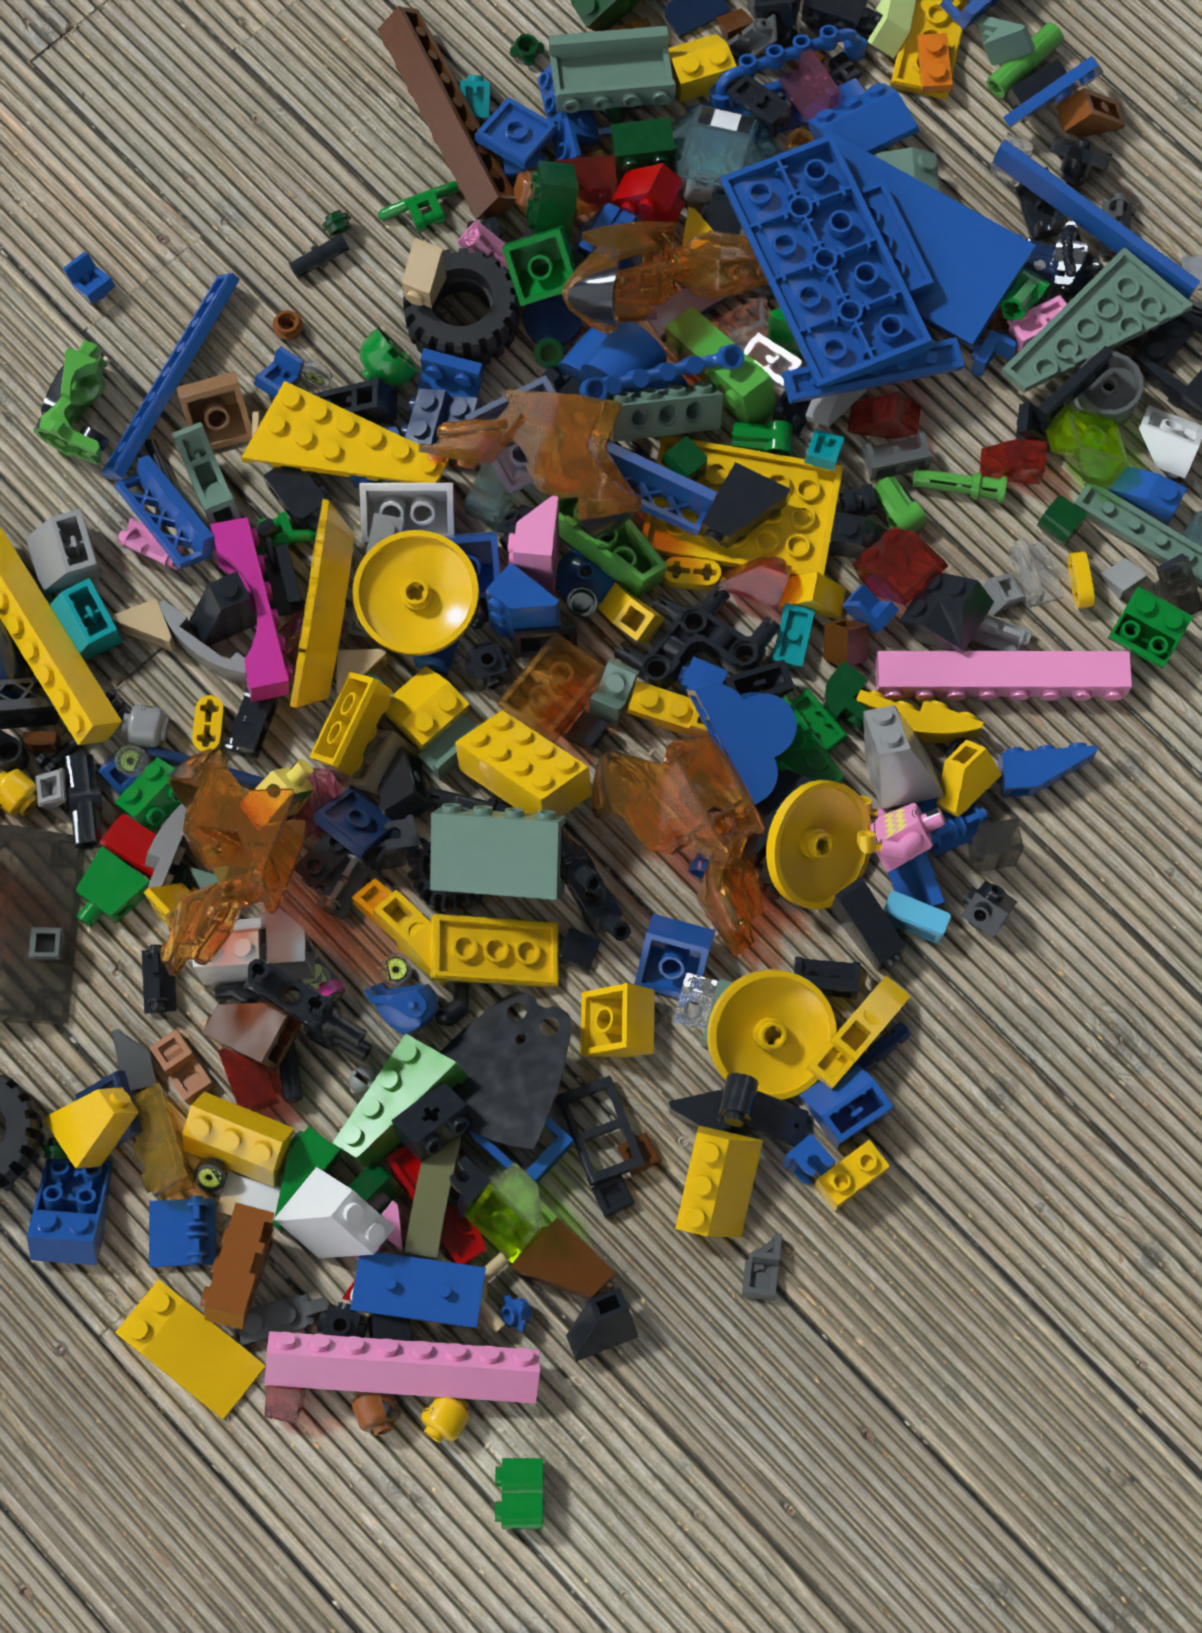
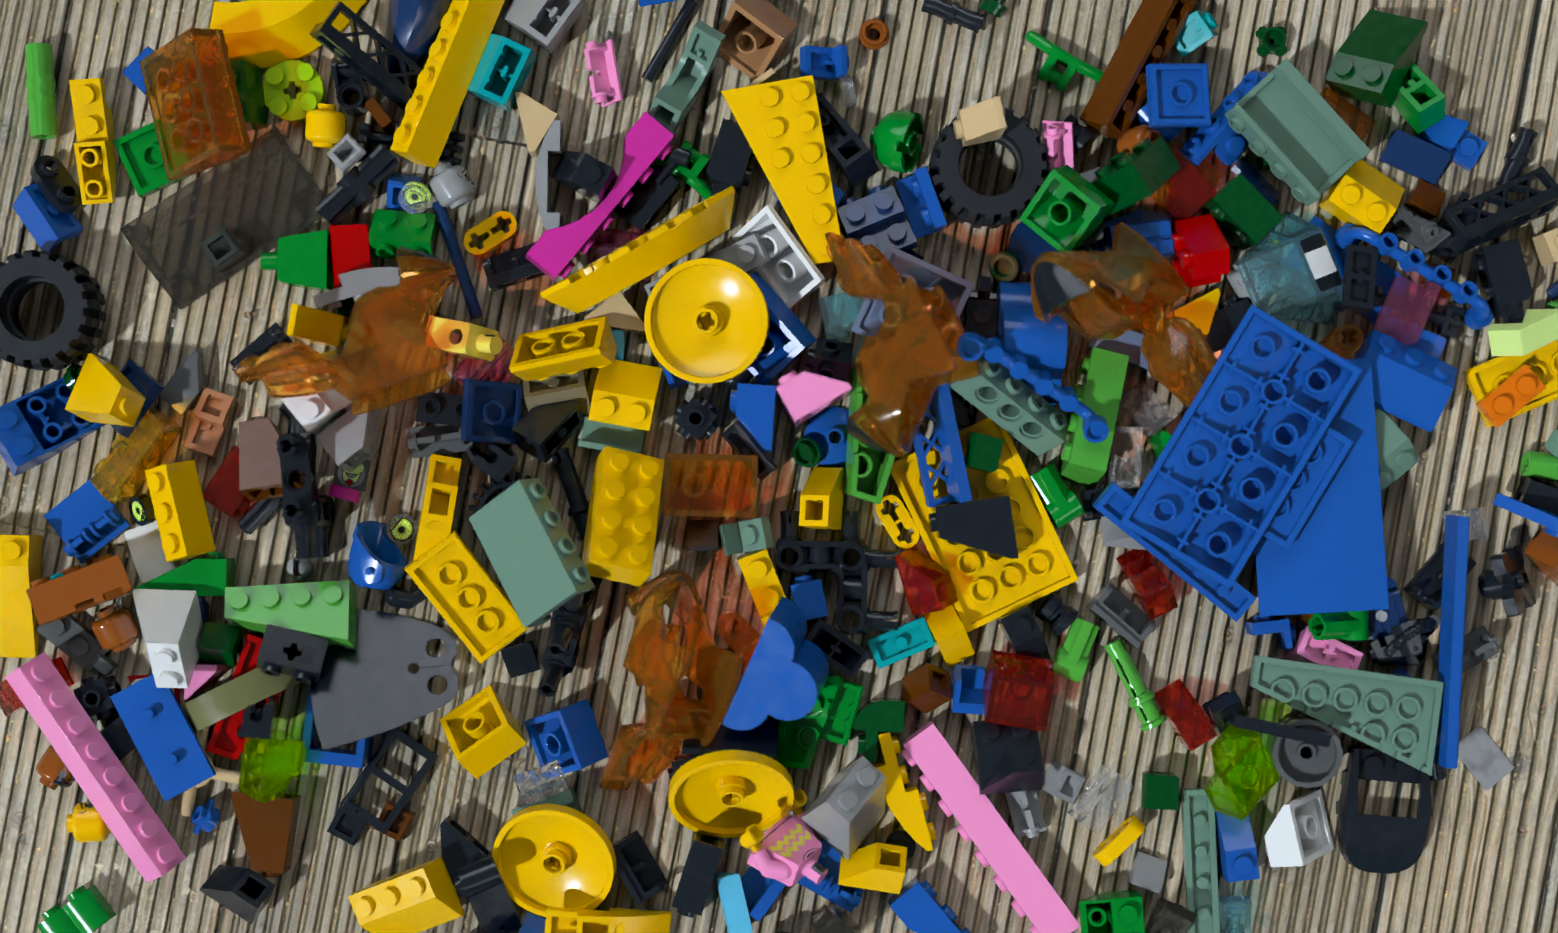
camera: 55 degrees right, 15 degrees up
(174, 513) = (644, 68): blue fence -> none
(293, 1271) = (115, 628): none -> dark orange head
(824, 450) = (1079, 556): teal bracket -> none

